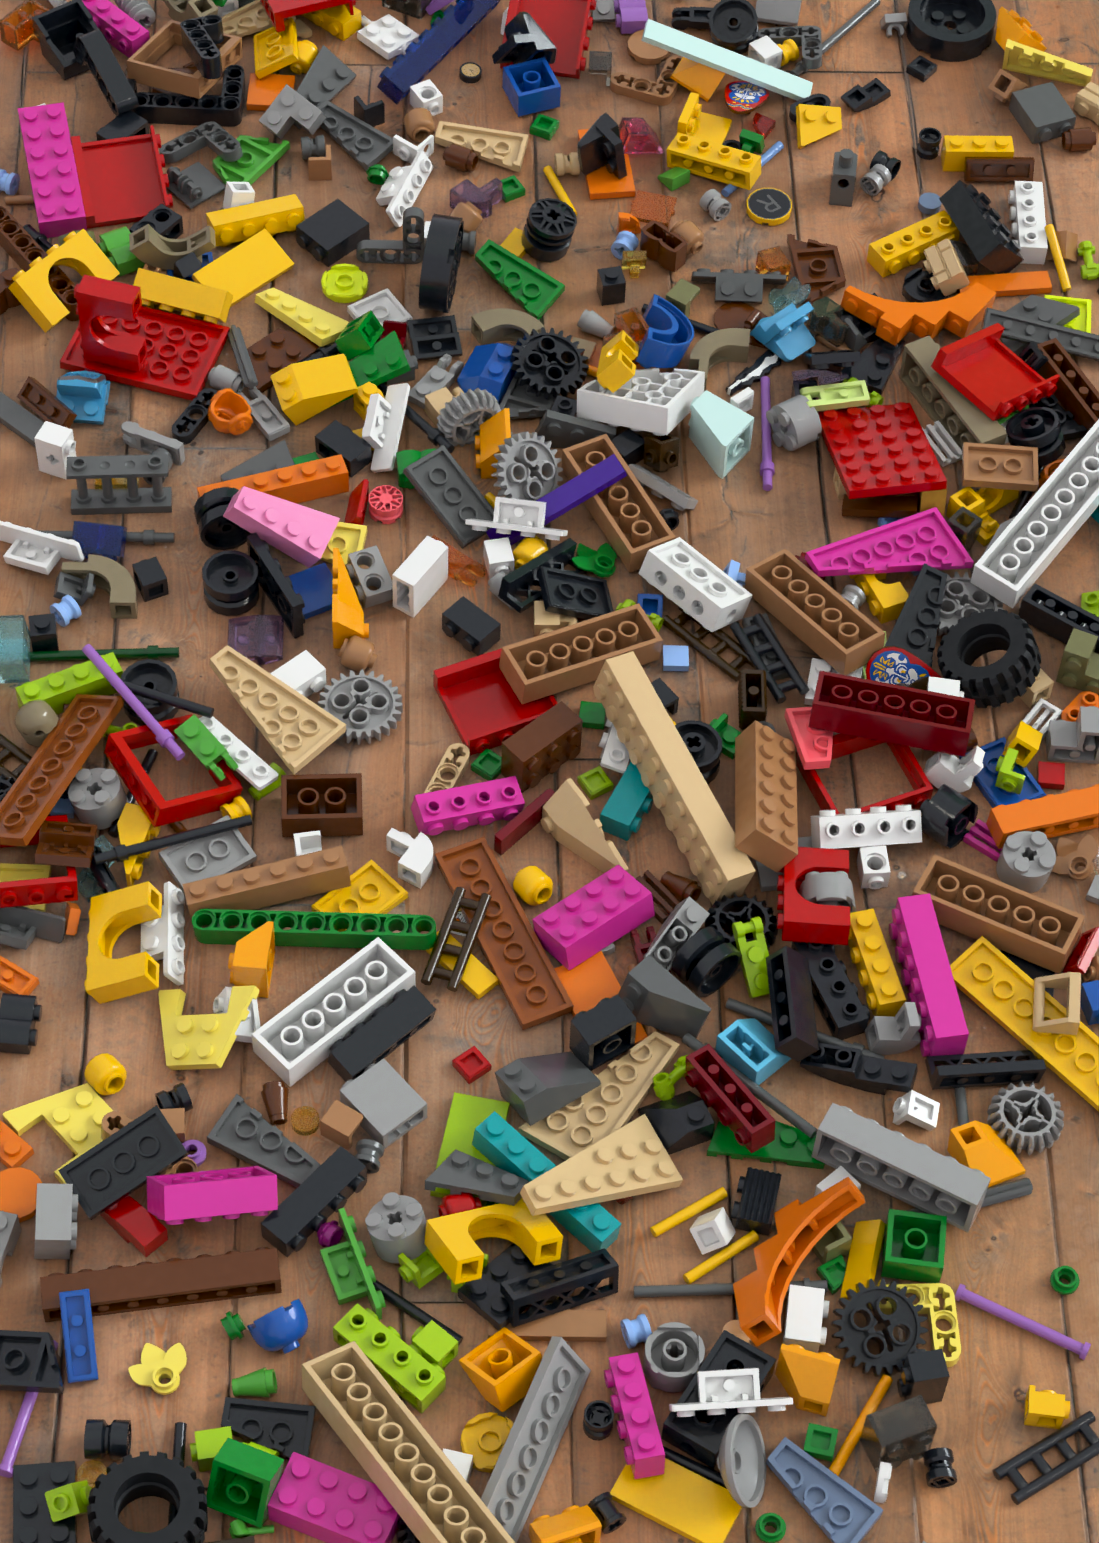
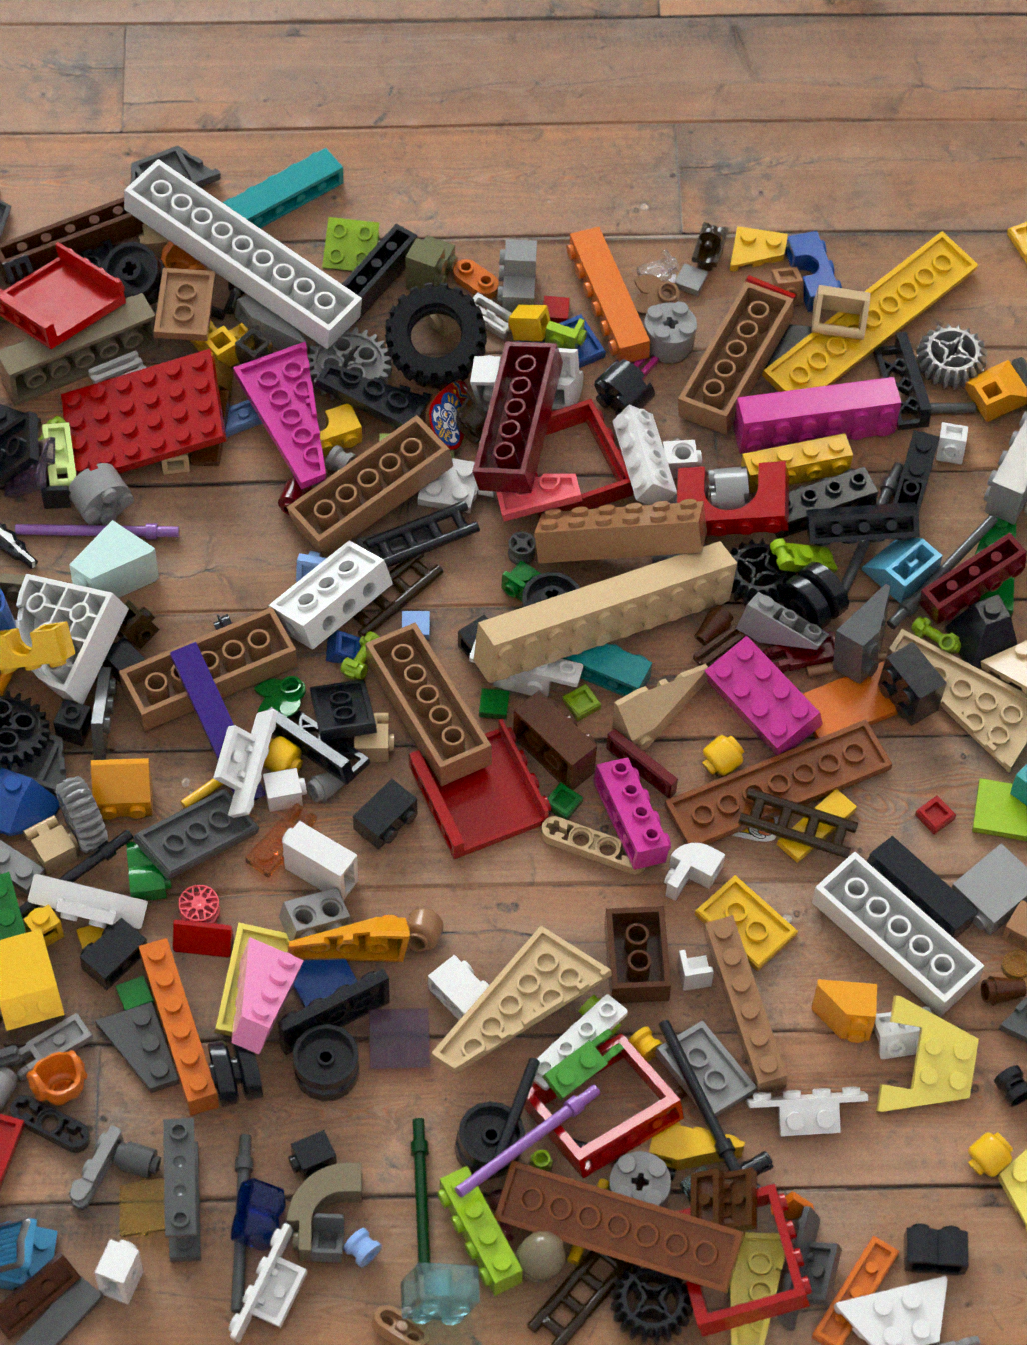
camera: 90 degrees left, 5 degrees up
(43, 632) = (397, 1264): black brick -> none
(109, 917) = (872, 1159): yellow arch -> none
(327, 934) = (797, 970): green beam -> none
(360, 700) = (476, 941): light grey gear -> none
(532, 467) = (158, 743): light grey gear -> none
(544, 1084) = (962, 740): dark grey slope -> none
(662, 488) = (181, 628): light grey plate -> none
(743, 399) = (57, 549): white tile -> none
(752, 697) = (480, 550): dark brown brick -> none
(894, 1034) = (872, 447): light grey brick -> none

